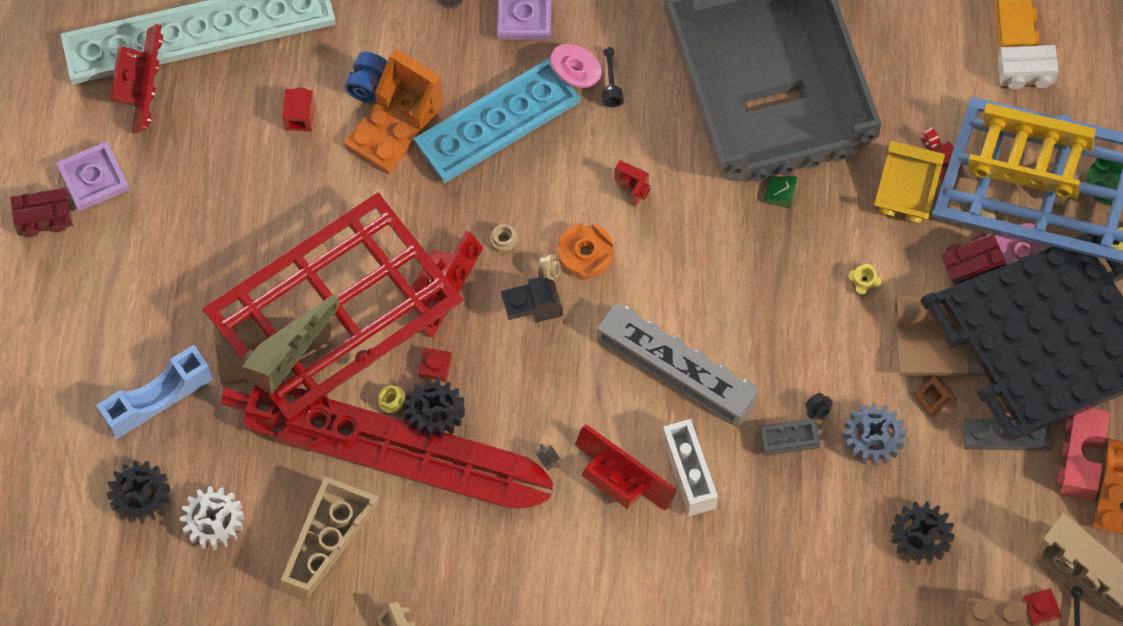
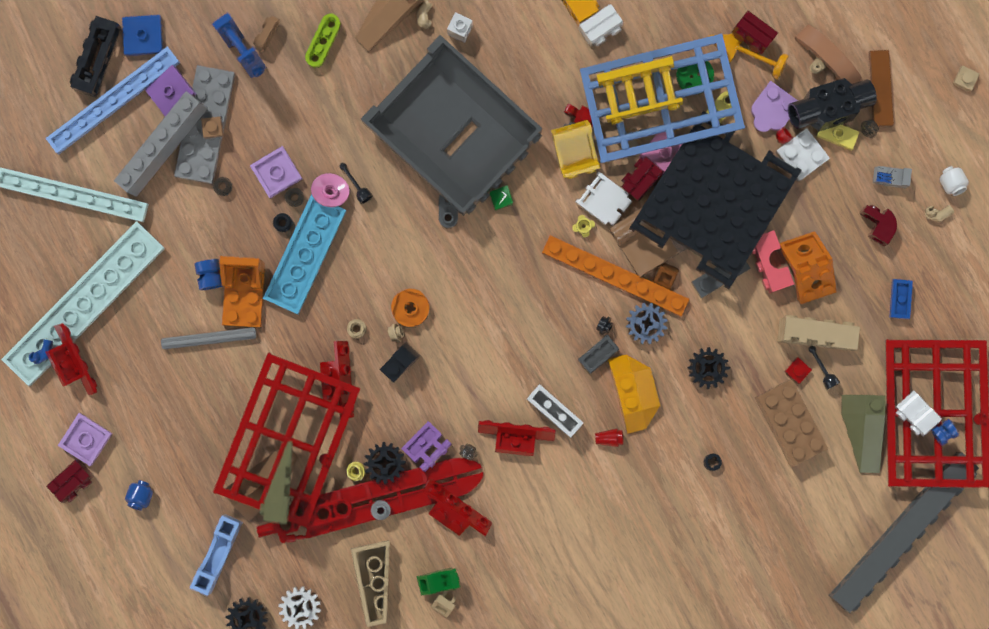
camera: 30 degrees left, 20 degrees up
(109, 53) = (40, 356): none -> blue arm
(110, 273) = (139, 495): none -> blue head
(298, 109) = (180, 320): red brick -> none
(318, 149) = (208, 338): none -> light grey axle
(395, 465) = (376, 505): none -> light grey plate
(406, 587) = (438, 581): none -> green brick
(435, 364) = (366, 433): red plate -> none
(481, 515) = (453, 511): none -> red bracket
(494, 65) = (282, 216): none -> black plate
(498, 412) = (422, 442): none -> medium lavender plate
(527, 46) = (288, 197): none -> clear smoke plate
(635, 178) = (407, 245): red bracket -> none
(677, 364) = (508, 348): light grey brick -> none
(704, 165) = (446, 208): none -> dark grey plate
(741, 545) = (610, 438): none -> red cone
(806, 510) = (634, 391): none -> light orange wedge
(869, 360) = (615, 276): none -> orange plate
(910, 263) = (605, 200): none -> white plate

